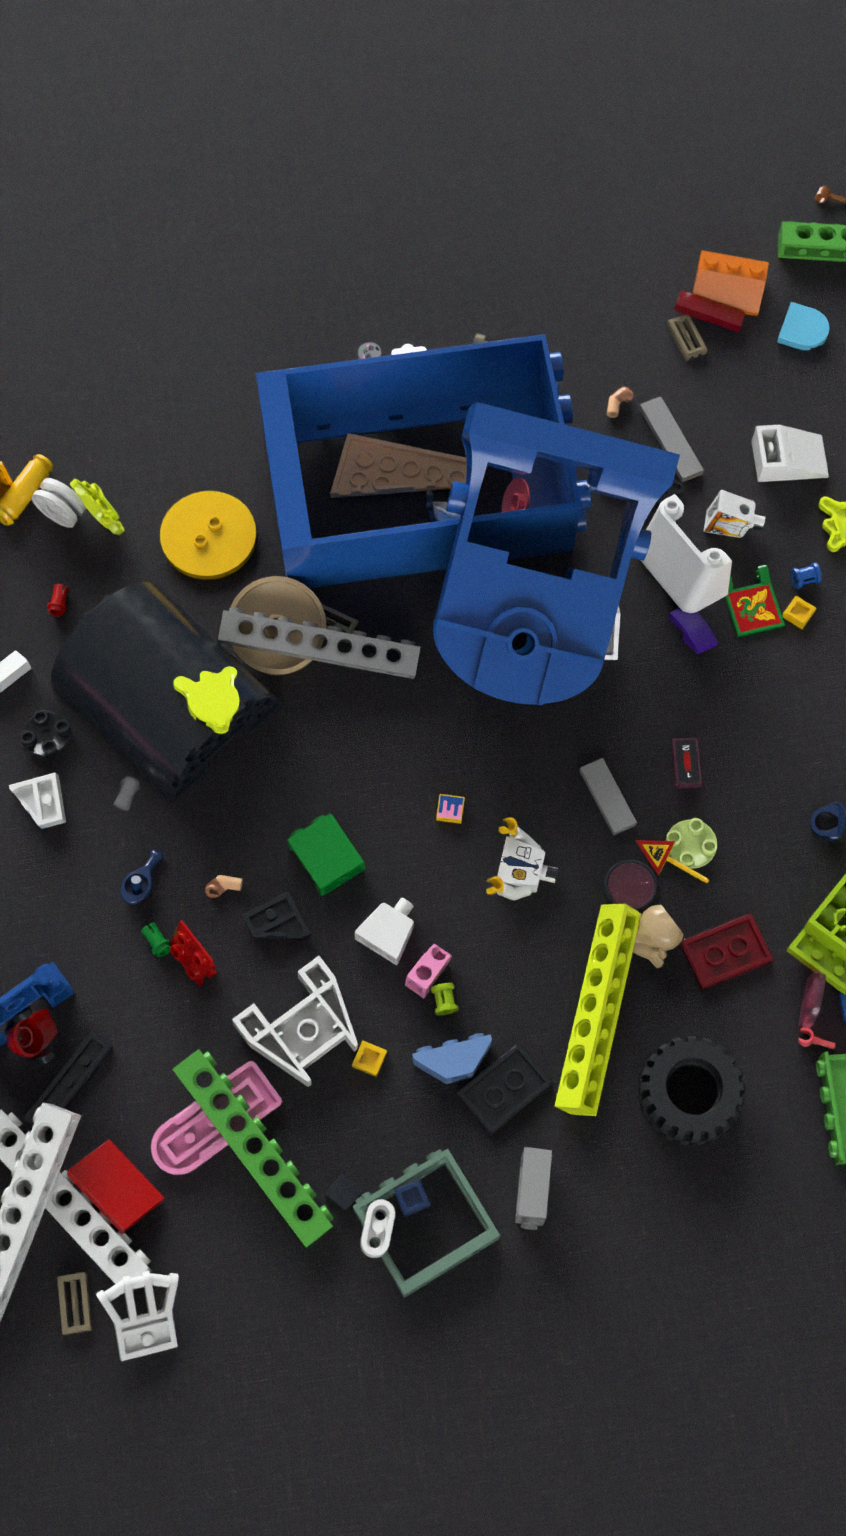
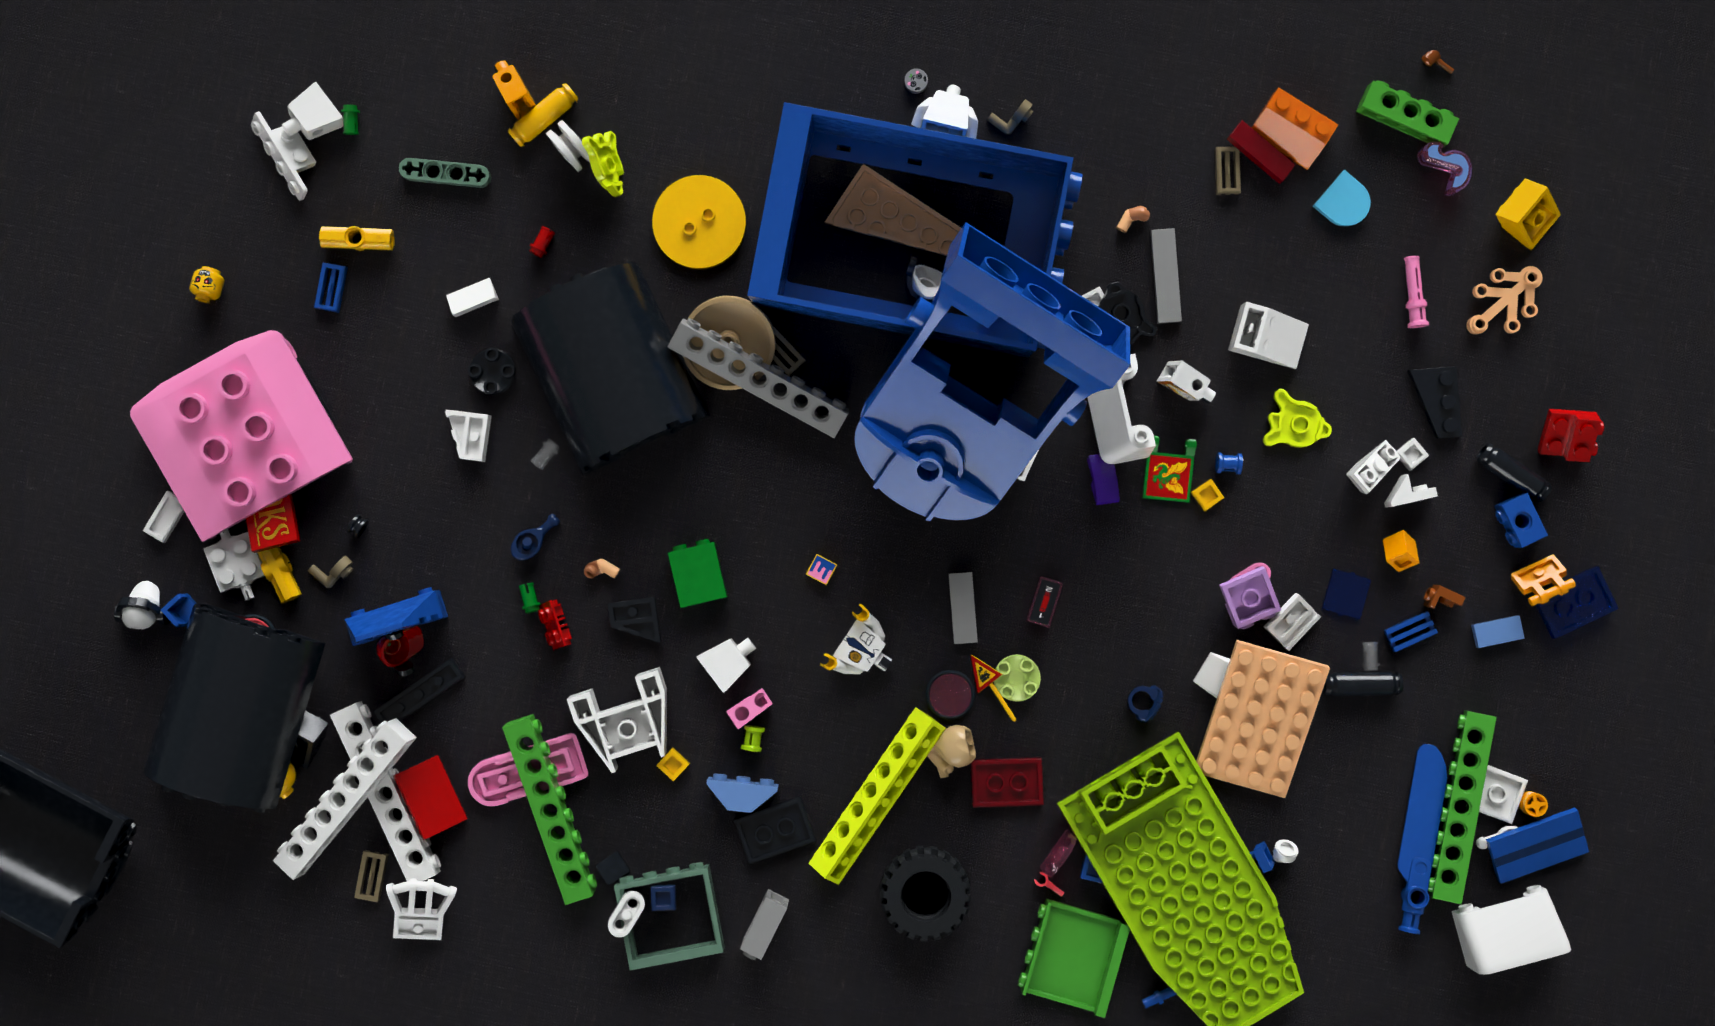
camera: 20 degrees right, 20 degrees up
(212, 698) = (638, 415): neon yellow tile -> none

